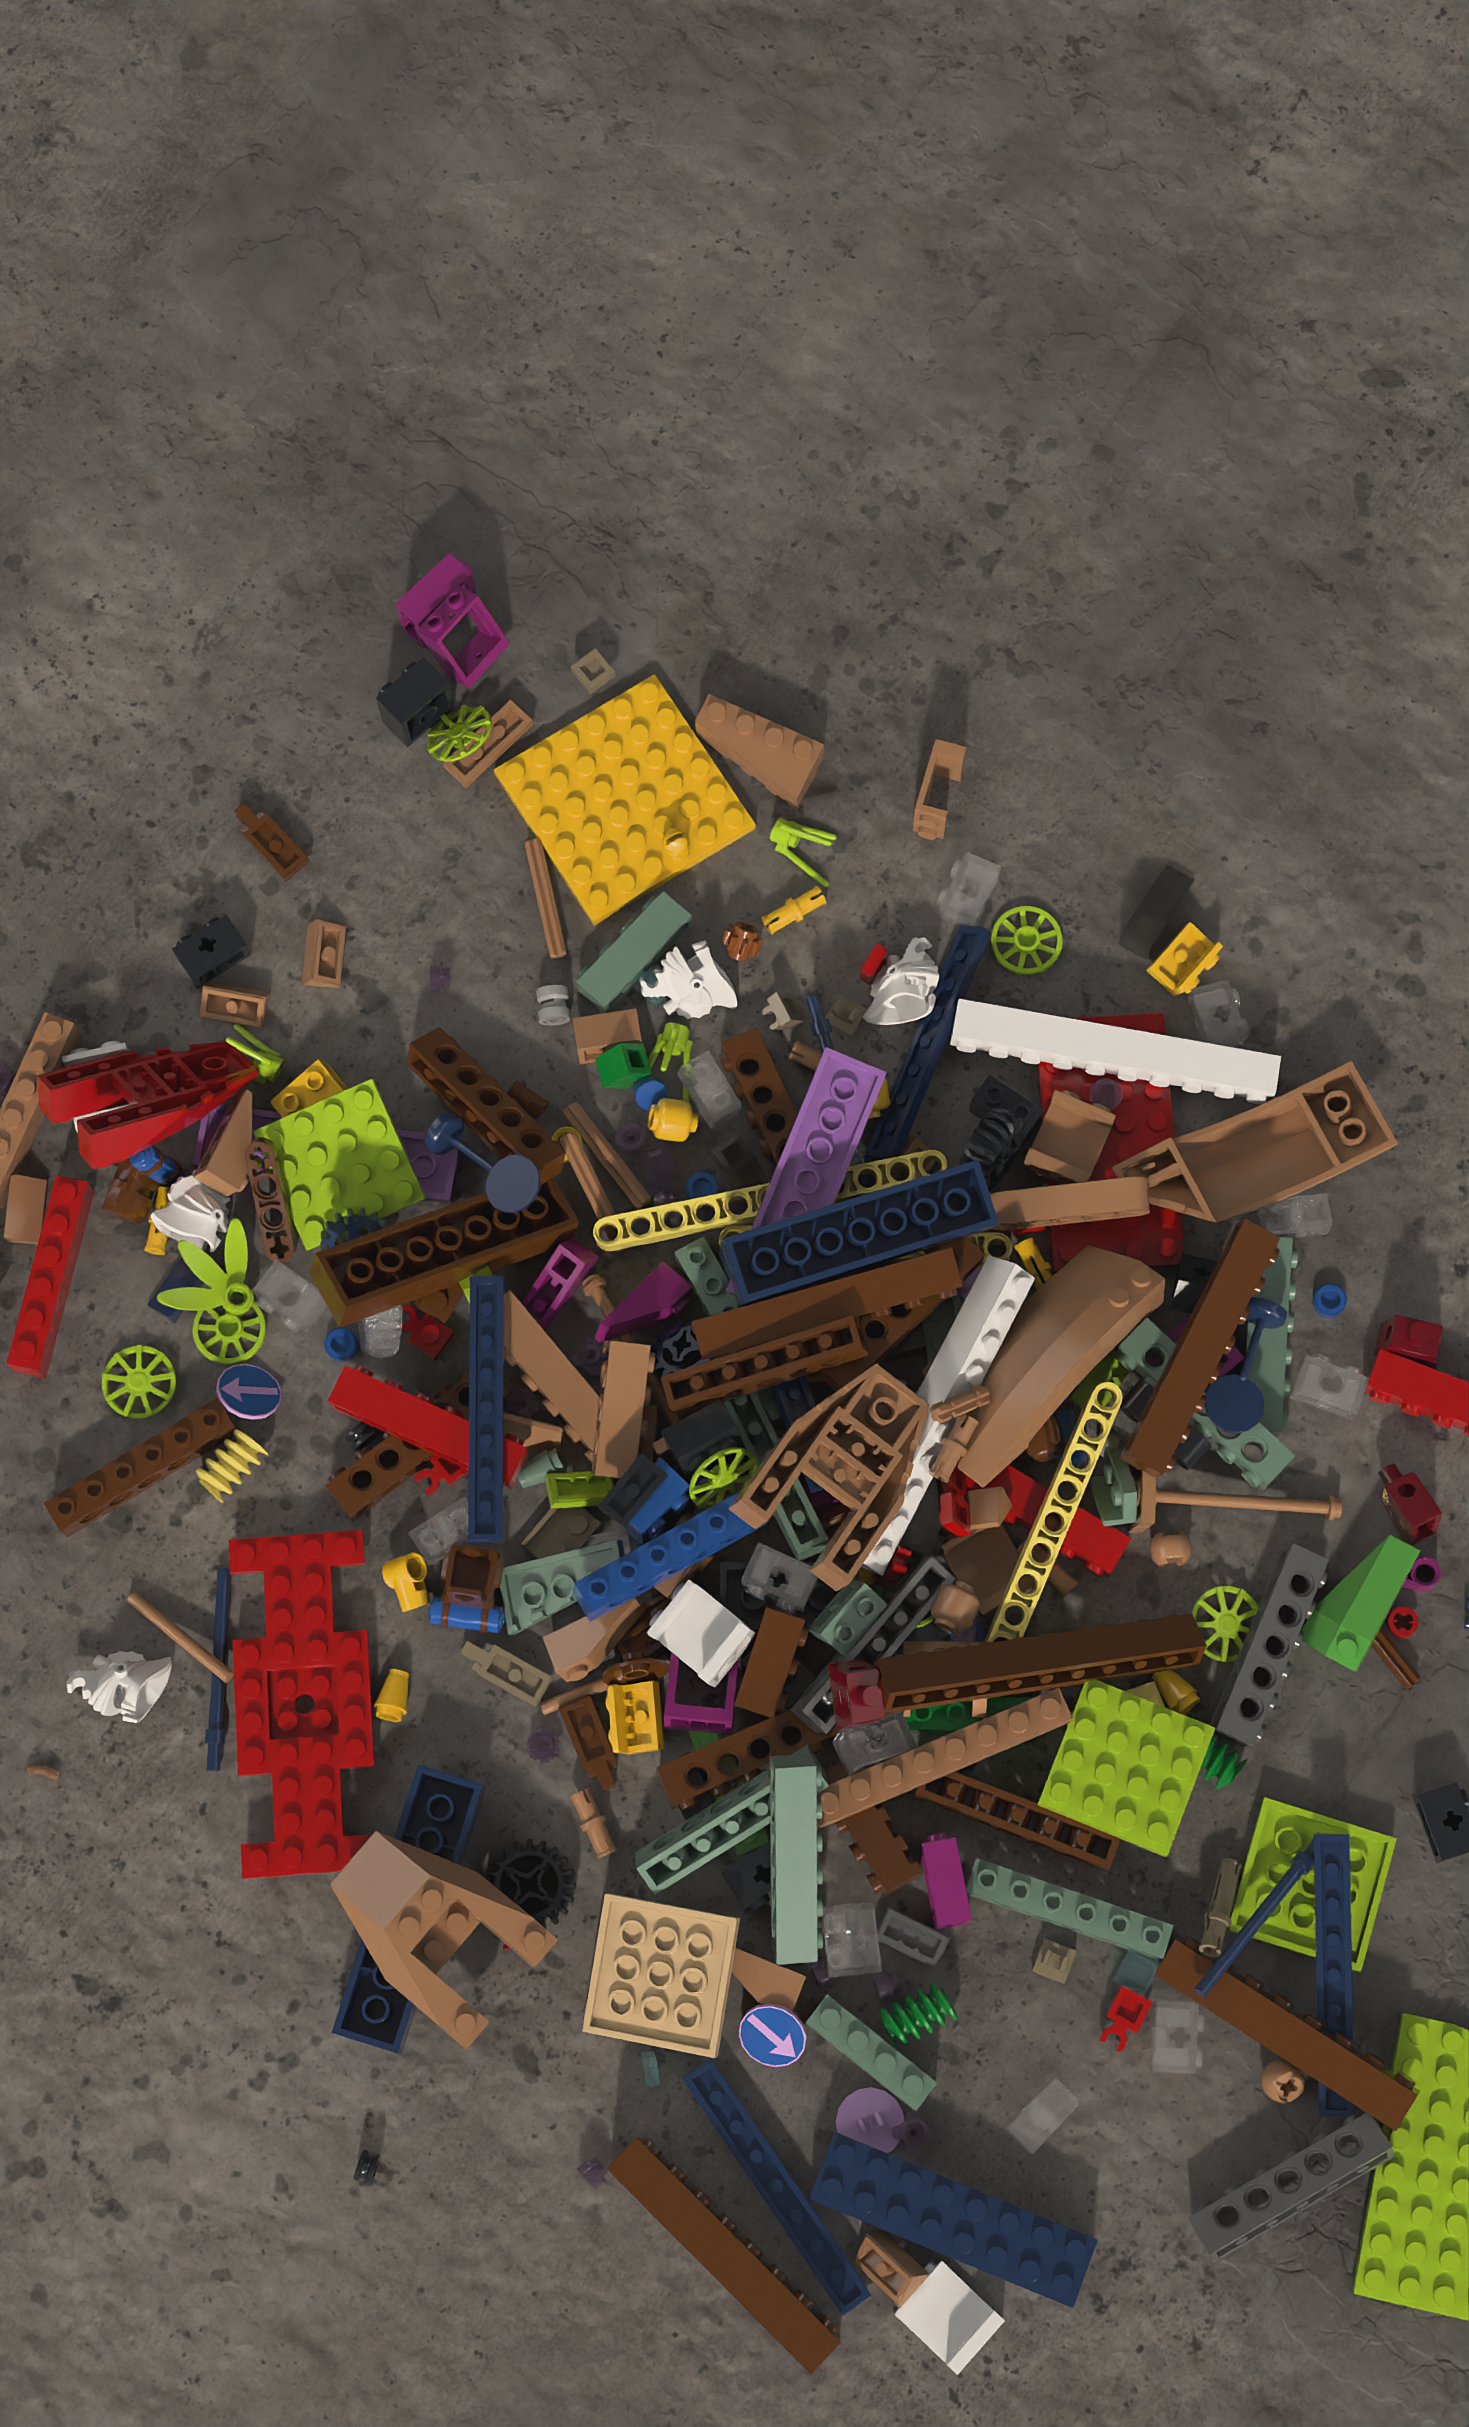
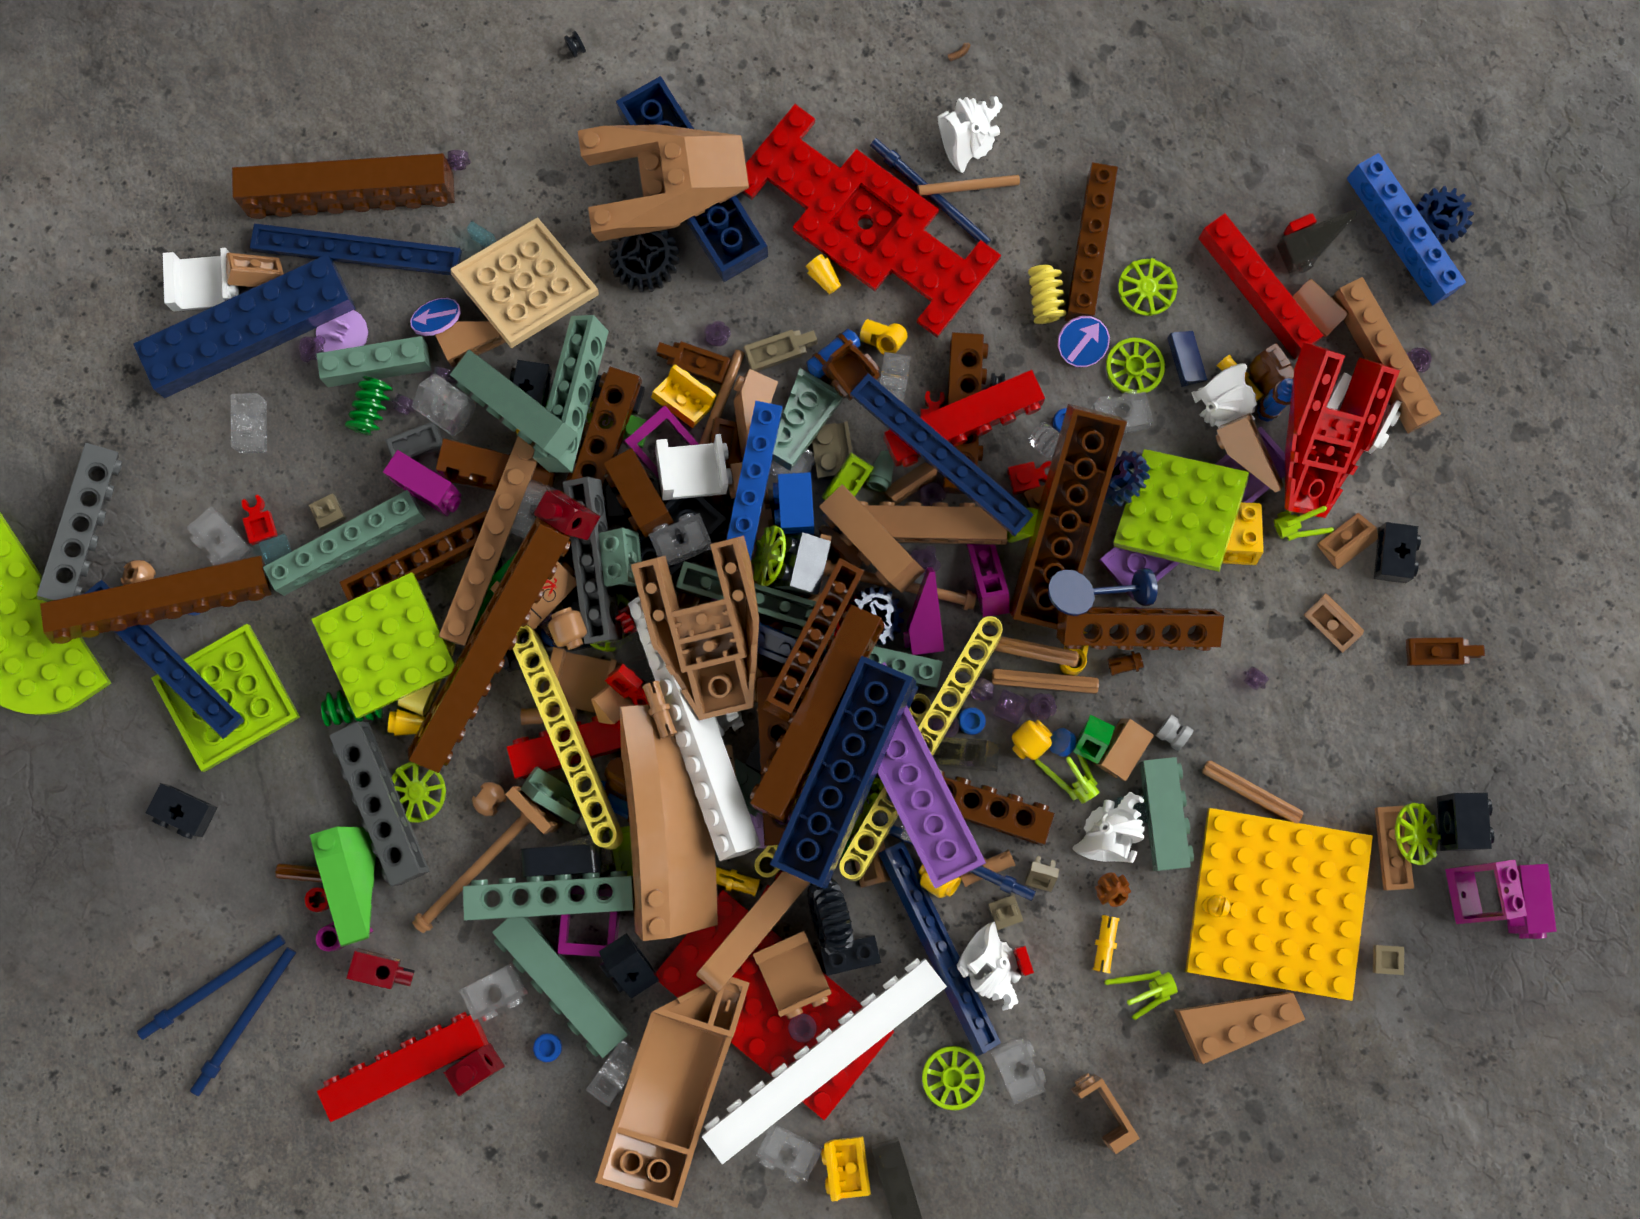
camera: 130 degrees right, 5 degrees up
(210, 1273) = (1181, 377): lime plant -> none
(265, 1200) = (1196, 444): reddish brown beam -> none
(593, 1823) = (646, 322): medium nougat pin -> none
(633, 1491) = (806, 488): black plate -> none
(635, 1670) = (711, 417): reddish brown dish -> none
(709, 1089) = (1030, 779): clear brick -> none
(960, 1404) = (680, 736): medium nougat axle -> none
(1201, 1348) = (579, 922): reddish brown brick -> none
(1217, 1918) = (259, 627): dark tan pin -> none
(1234, 1400) = (530, 915): dark blue piece -> none
(1301, 1864) = (237, 699): dark blue bar -> none

